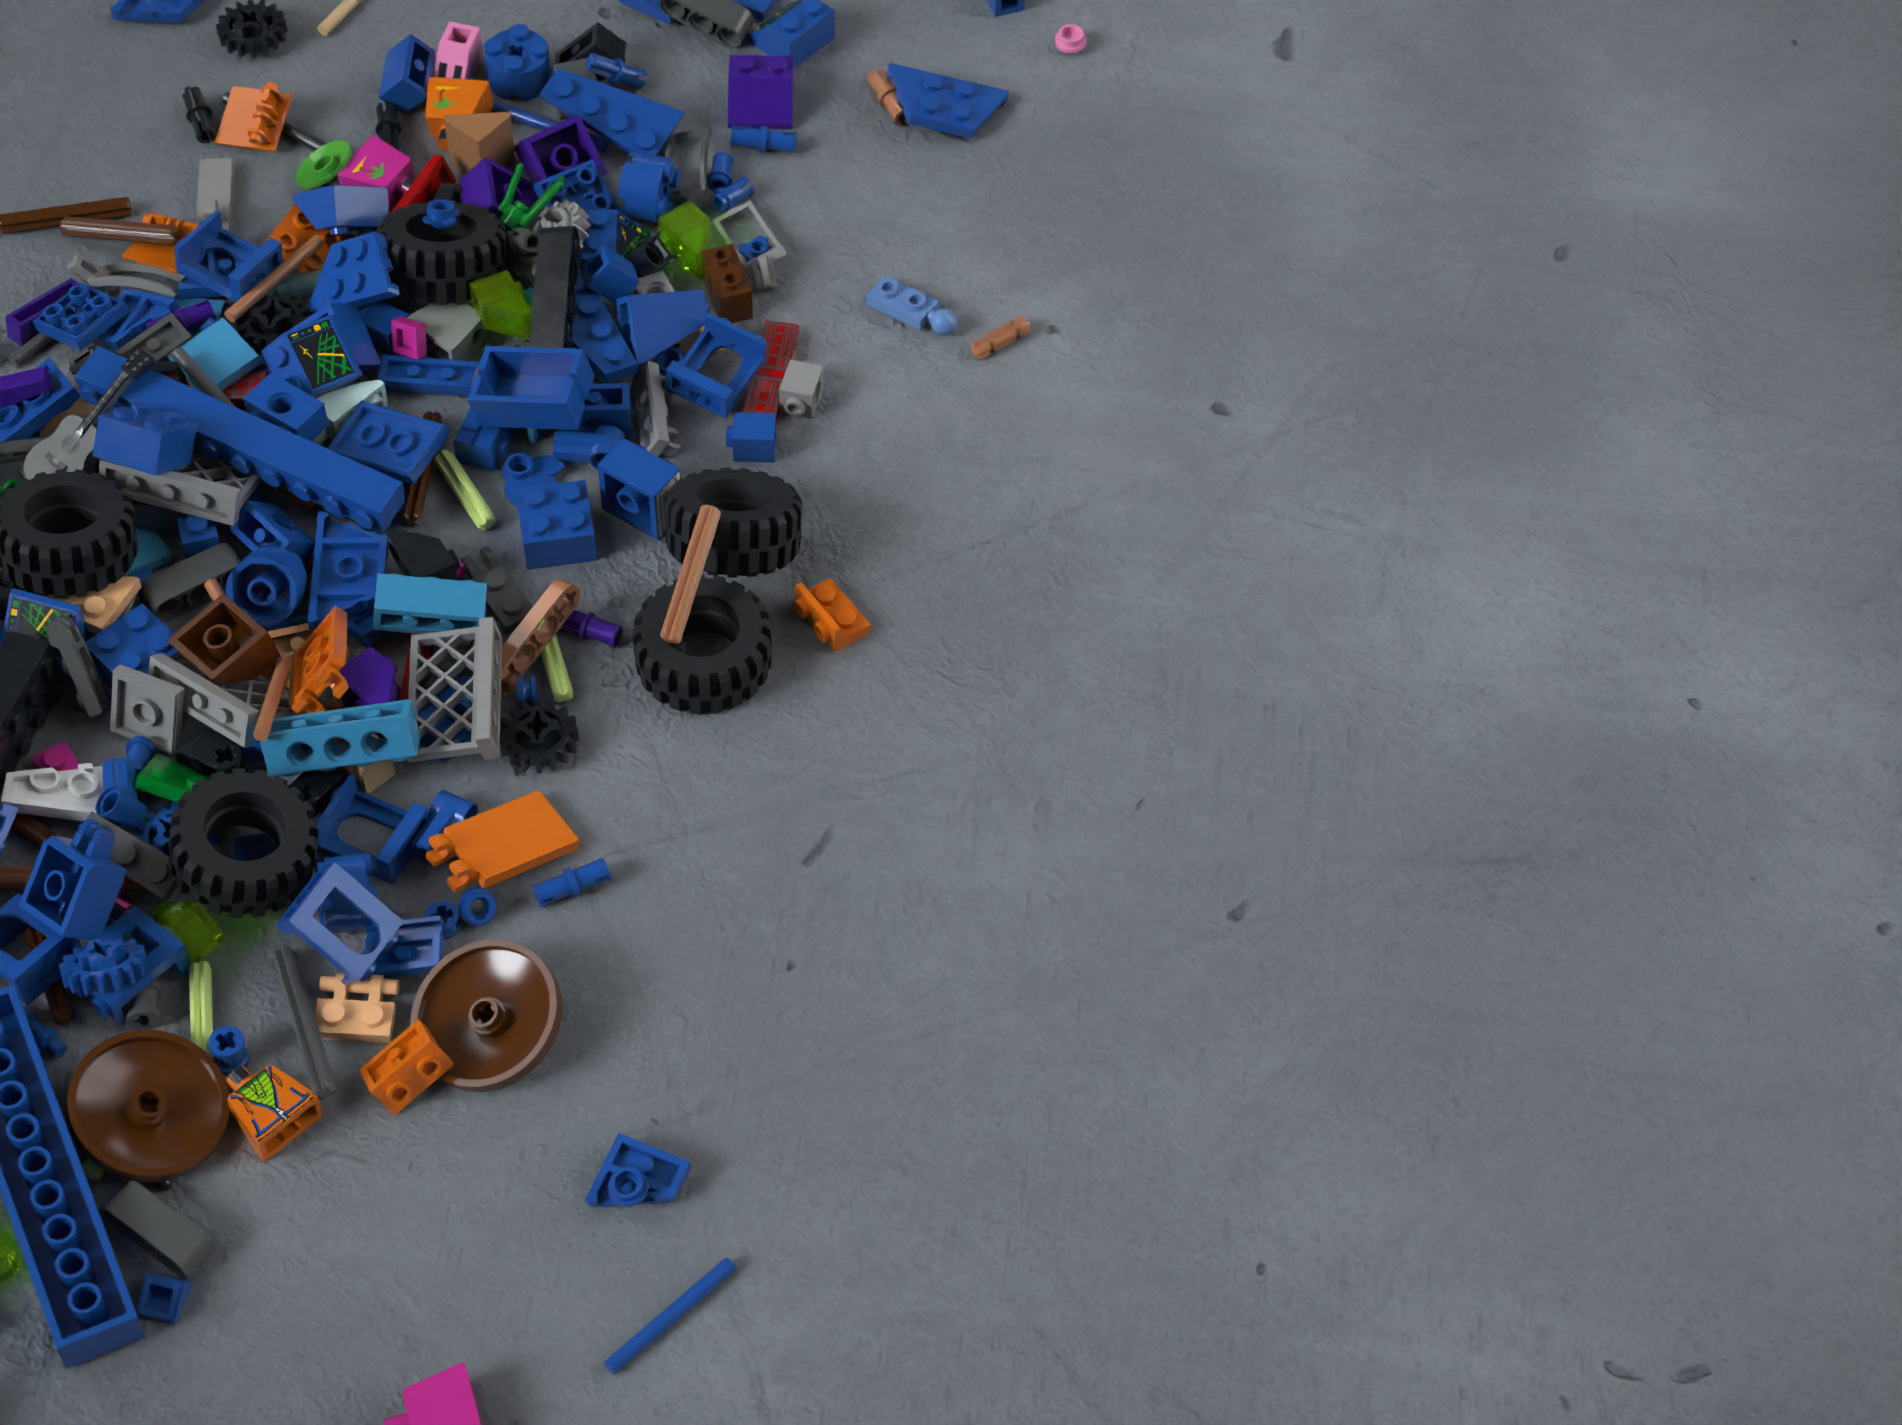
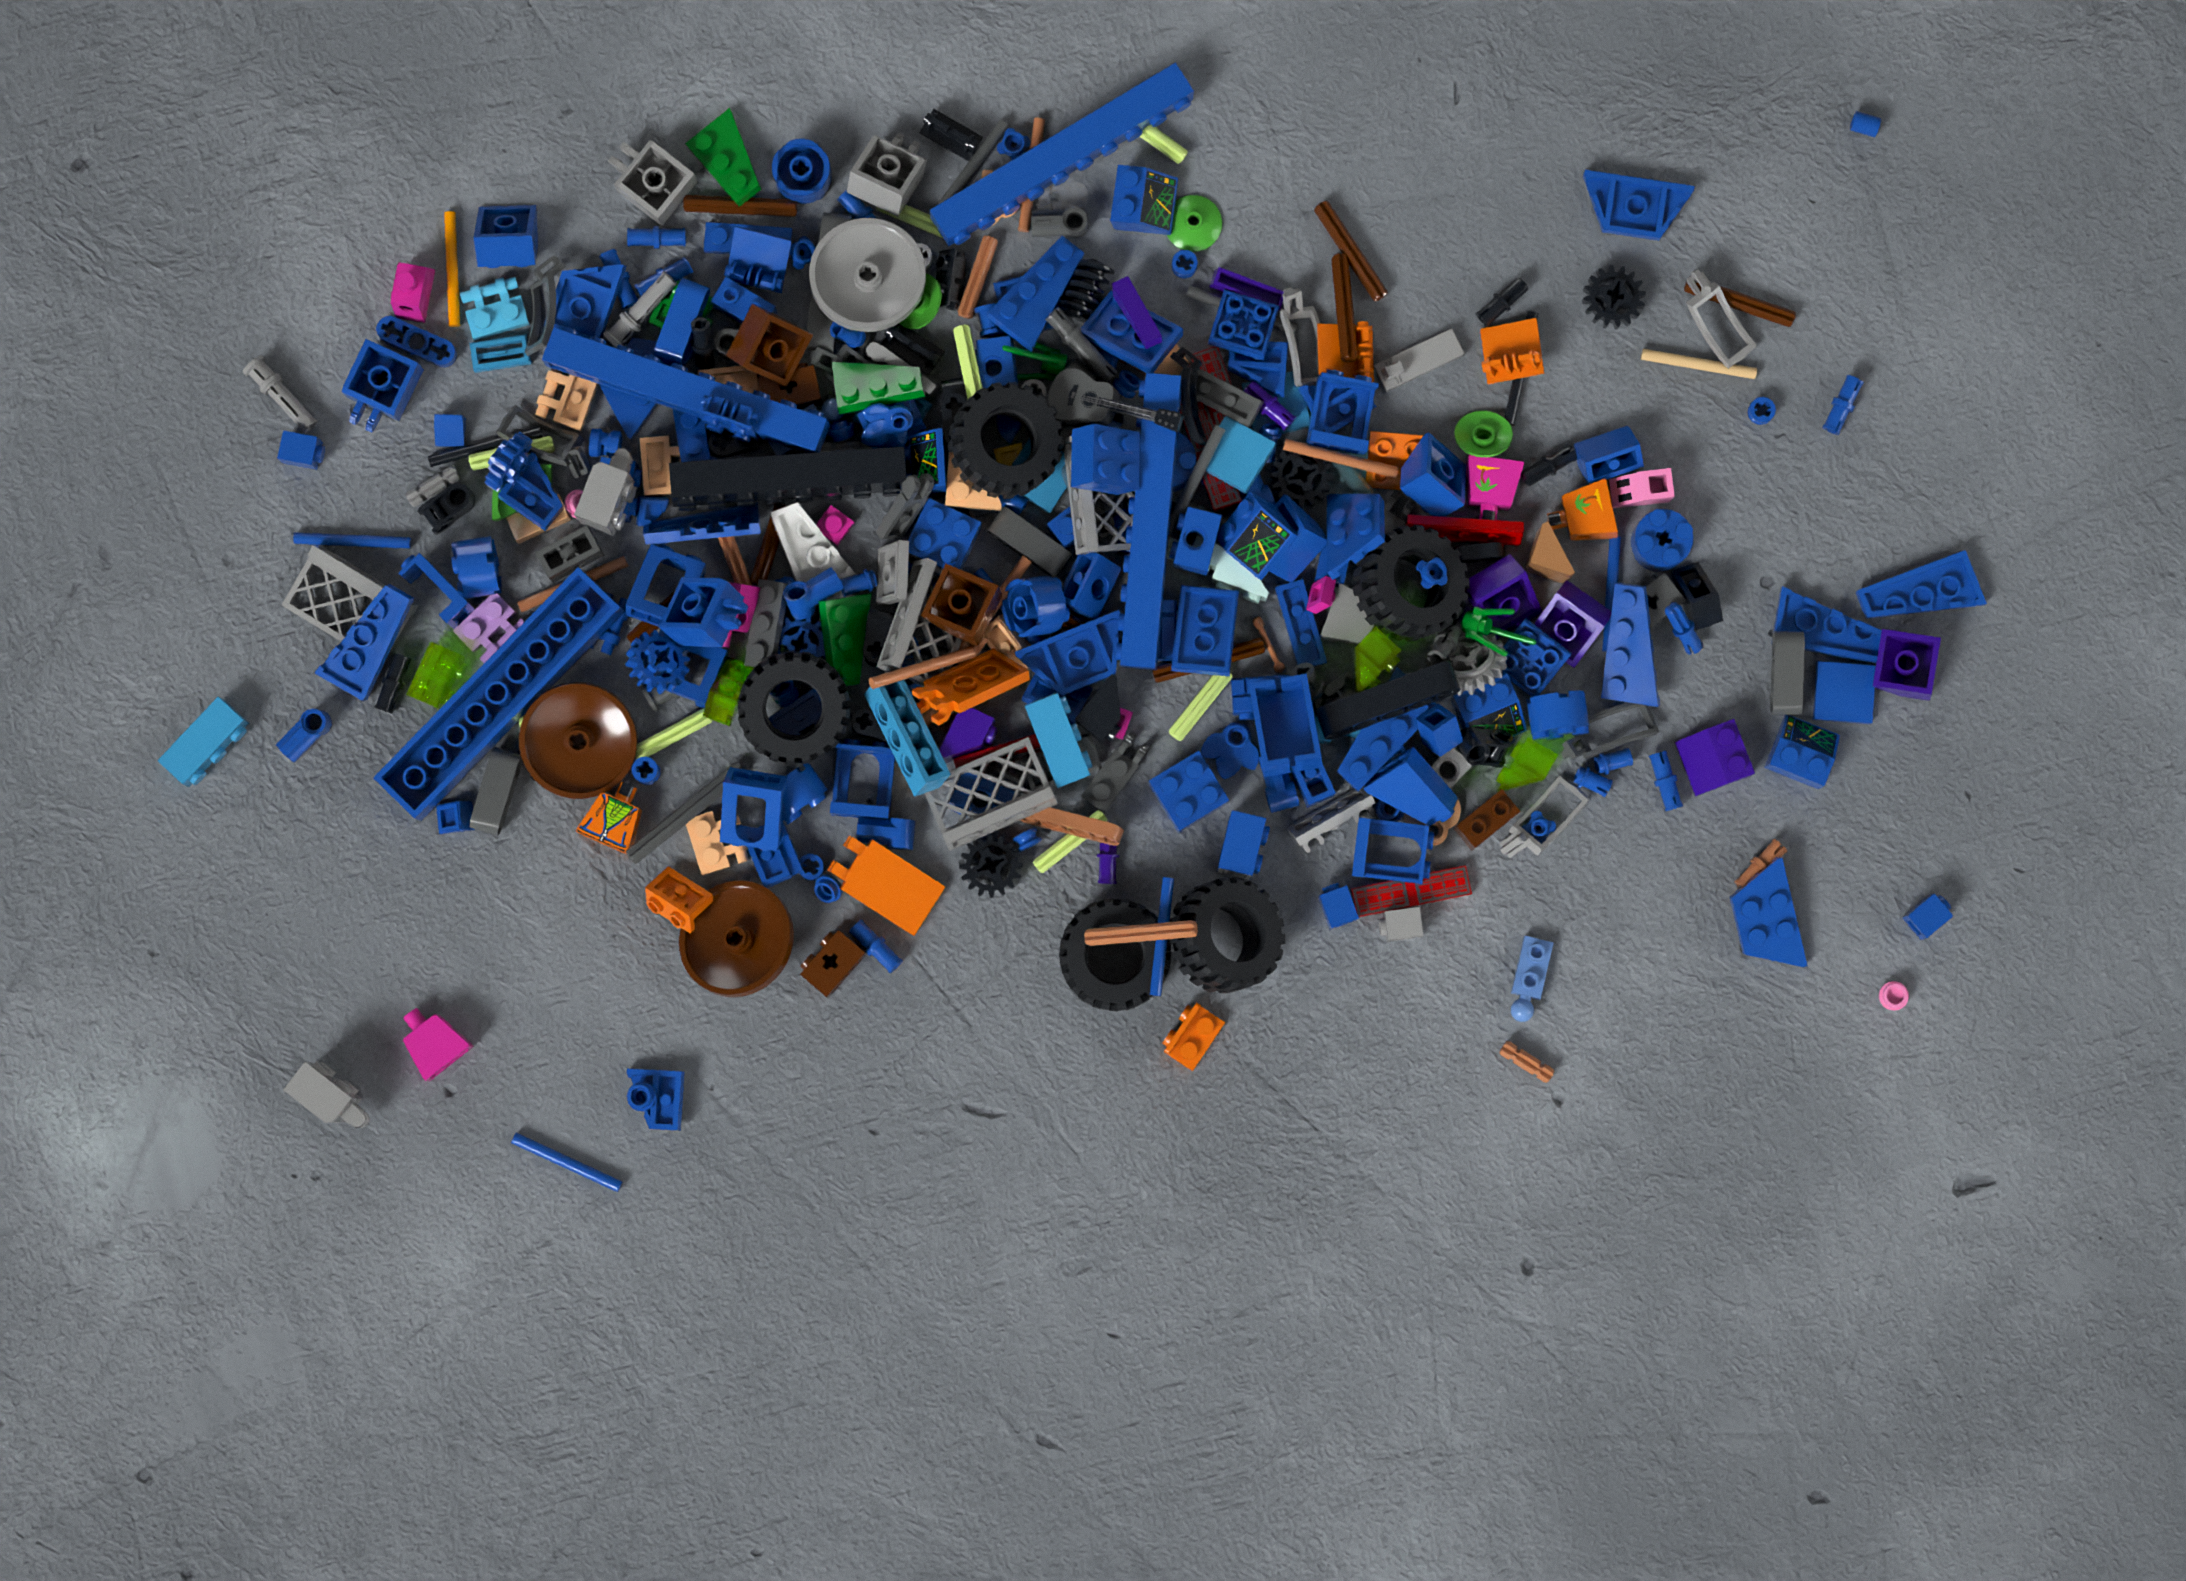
camera: 70 degrees right, 30 degrees up
(462, 412) = (1278, 666): none -> nougat hinge
(569, 930) = (848, 958): none -> reddish brown brick
(709, 574) = (1161, 945): none -> blue bar

